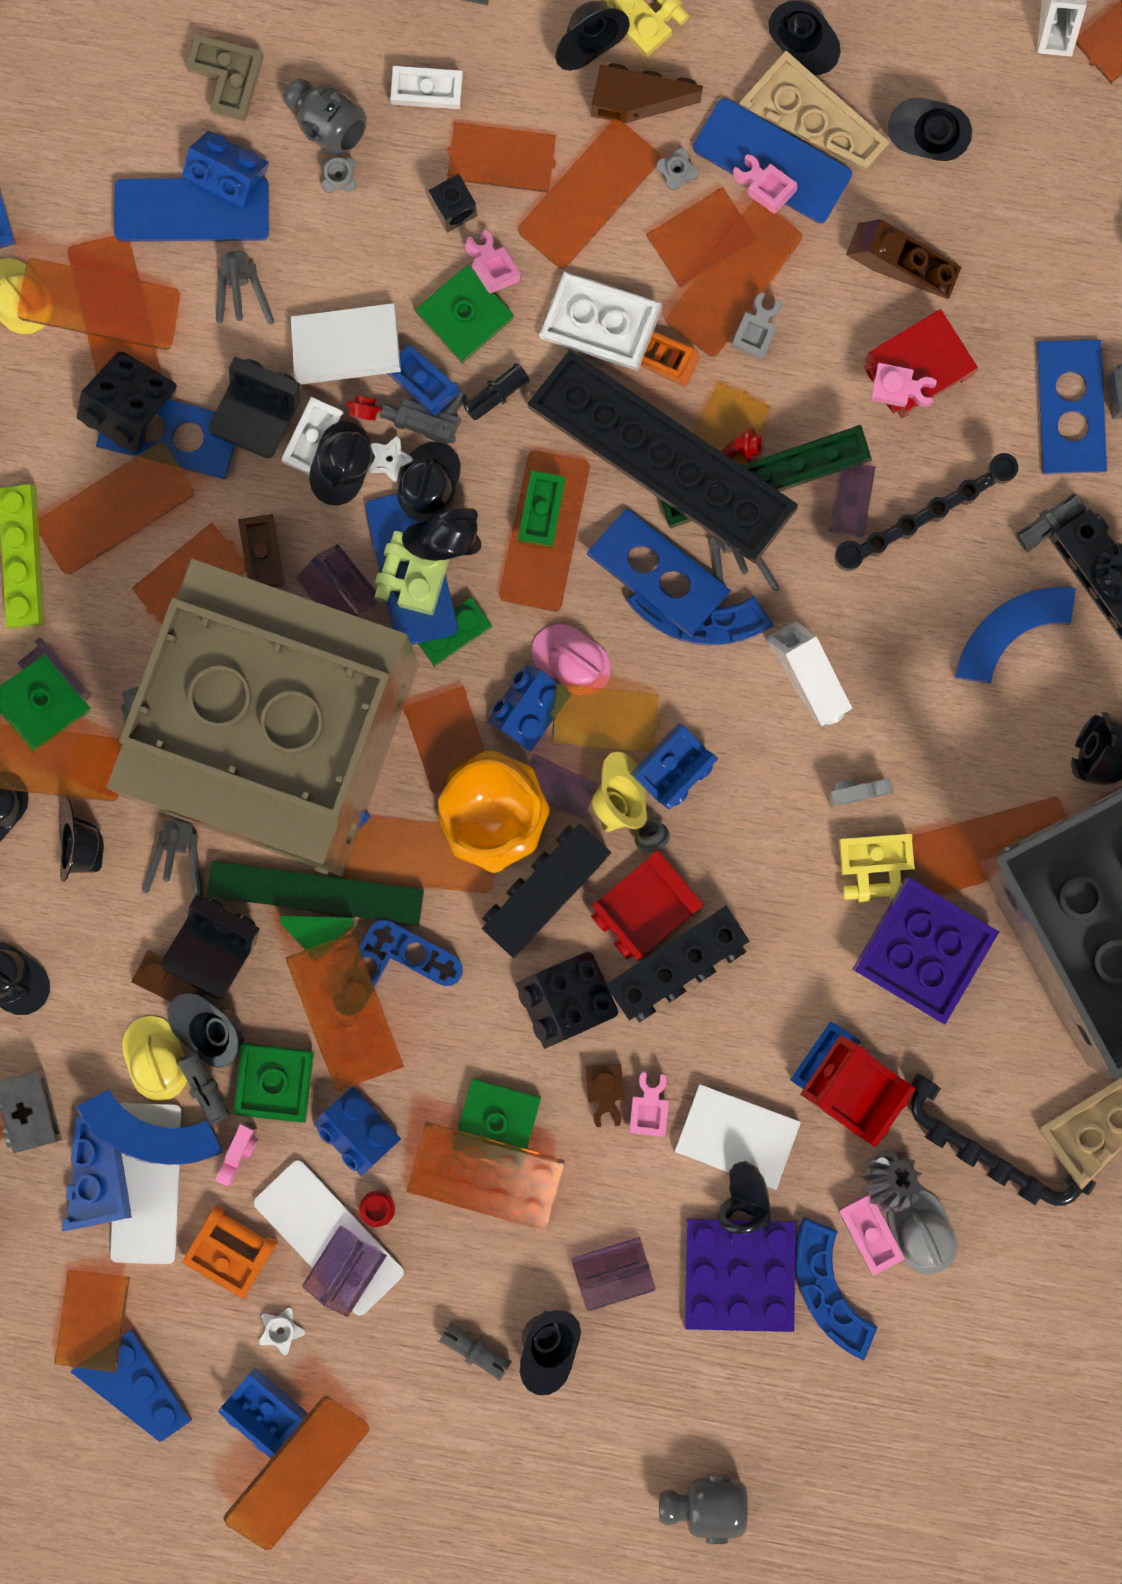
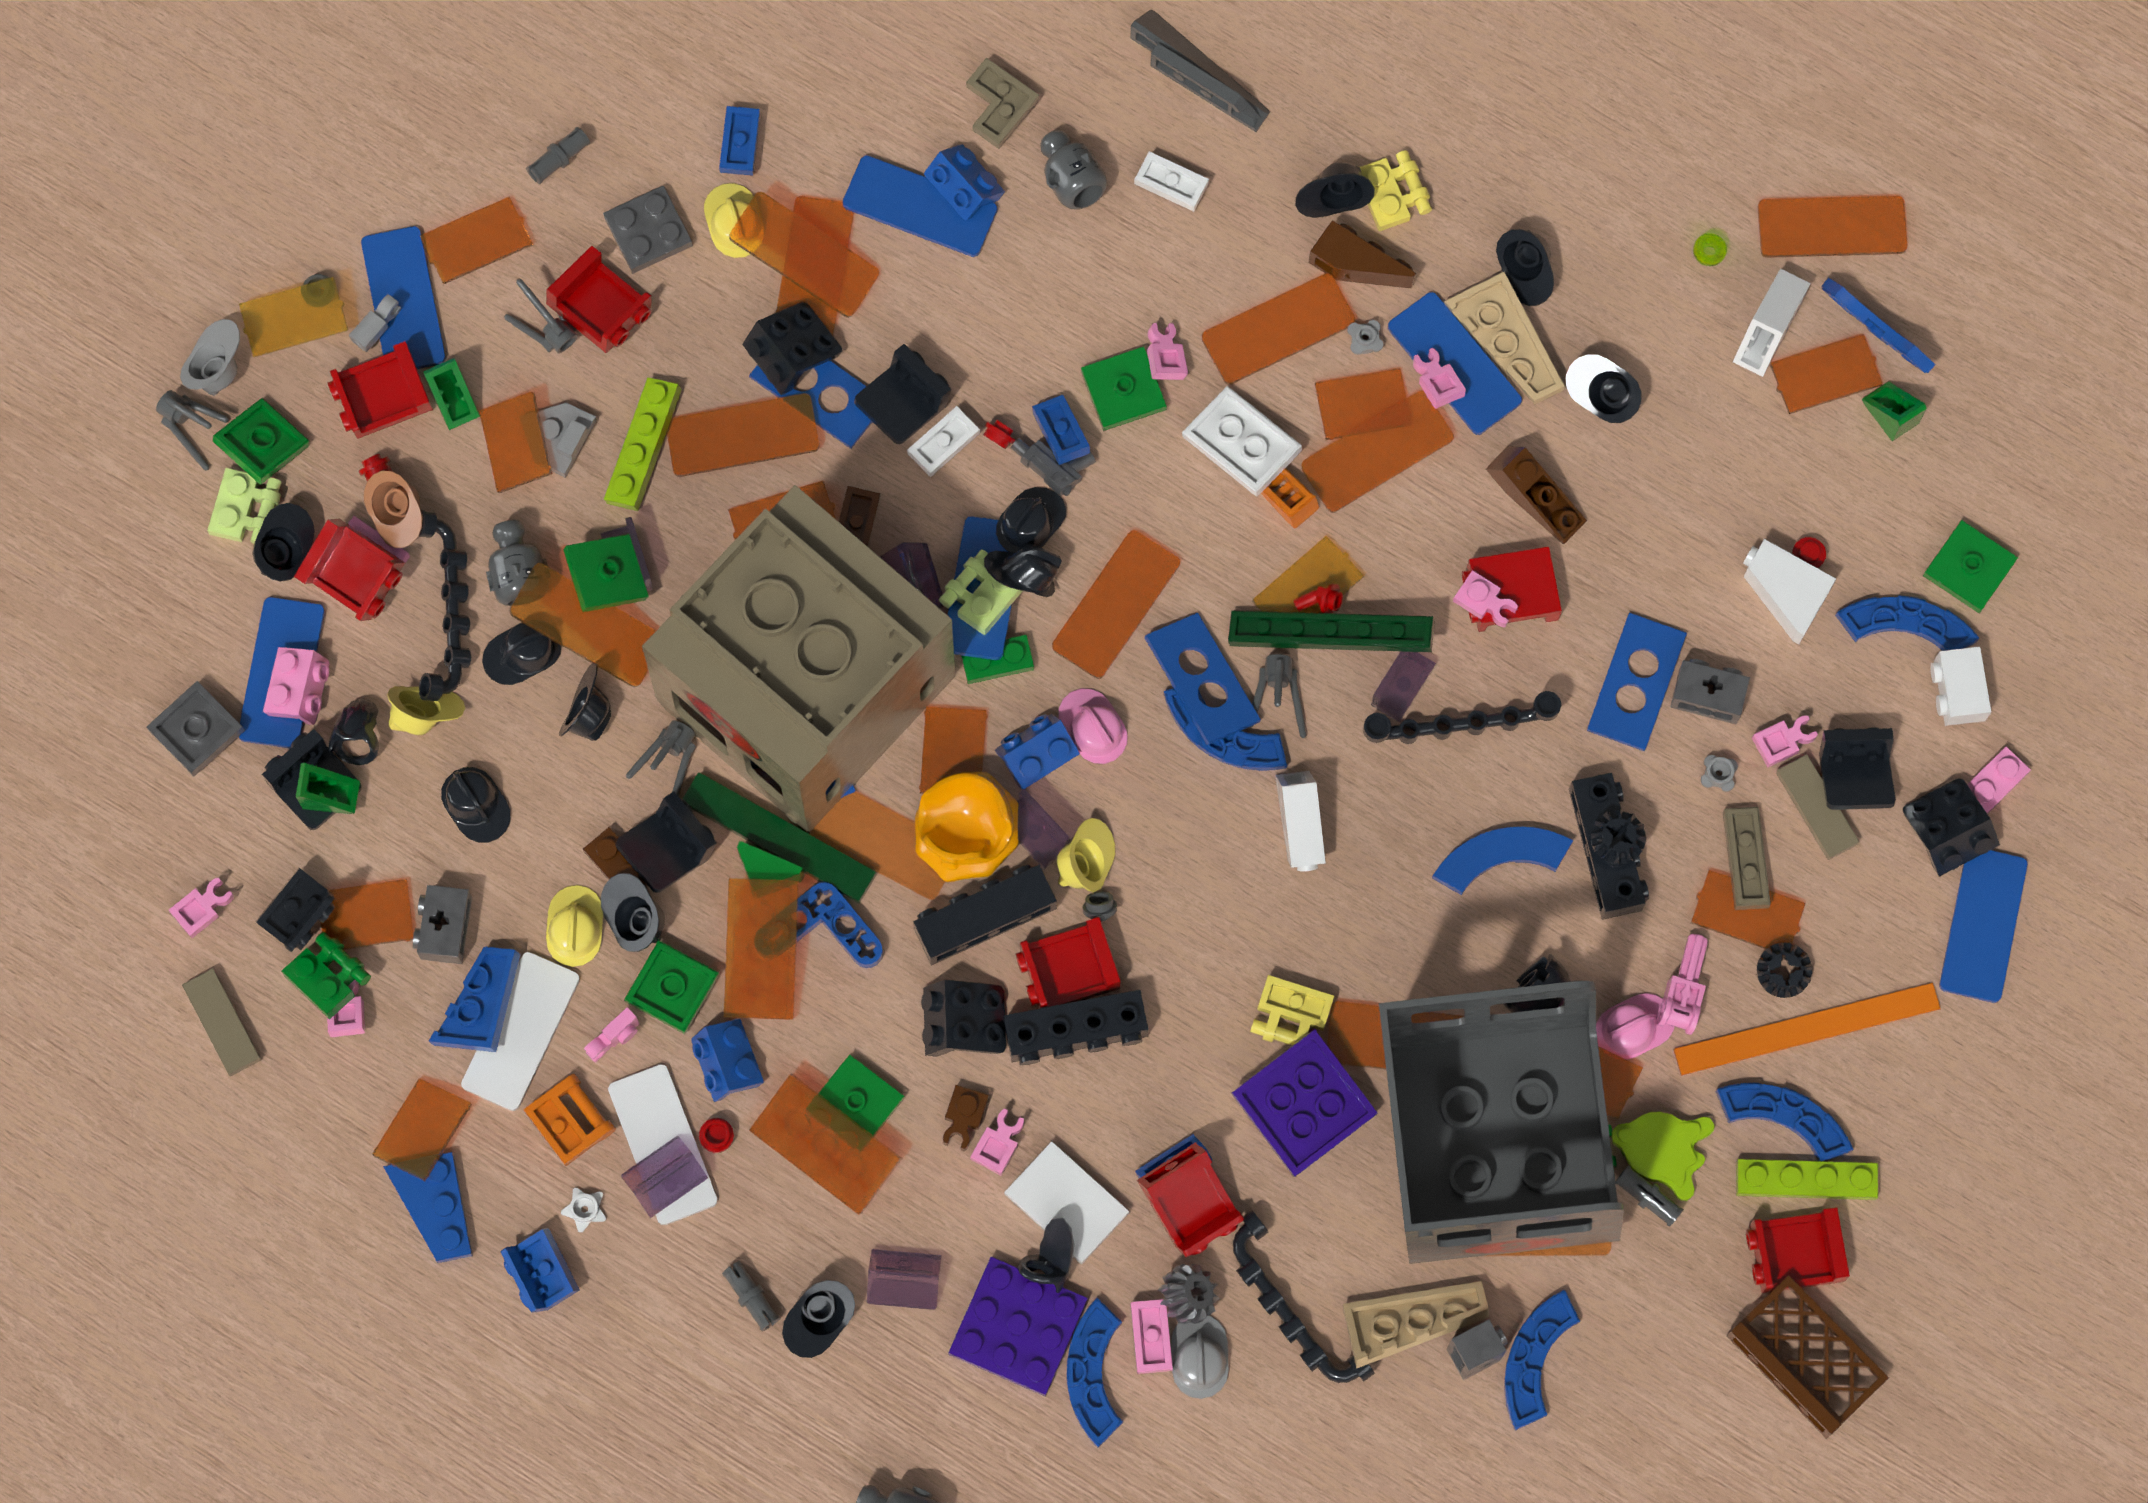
camera: 20 degrees right, 10 degrees down
(145, 1141) = (537, 989): blue tile -> none
(203, 1087) = (607, 965): dark grey pin -> none
(235, 273) = (934, 274): dark grey plant -> none
(296, 1473) = (546, 1336): clear orange piece -> none
(336, 165) = (1064, 217): light grey plate -> none
(340, 463) = (958, 474): black piece -> none
(345, 344) = (1006, 372): white tile -> none
(393, 468) = (1002, 496): white plate -> none
(452, 203) = (1152, 288): black brick -> none
(496, 392) = (1123, 466): black axle -> none
(502, 157) = (1213, 267): clear orange piece -> none
(541, 509) = (1120, 582): green plate -> none
(604, 718) = (1100, 786): clear yellow piece -> none
(663, 456) = (1246, 577): black plate -> none
(674, 767) = (1144, 853): blue bracket -> none
(755, 330) = (1376, 504): light grey plate -> none
(850, 792) = (1294, 938): light grey plate -> none
(1050, 522) = (1564, 775): dark grey pin -> none

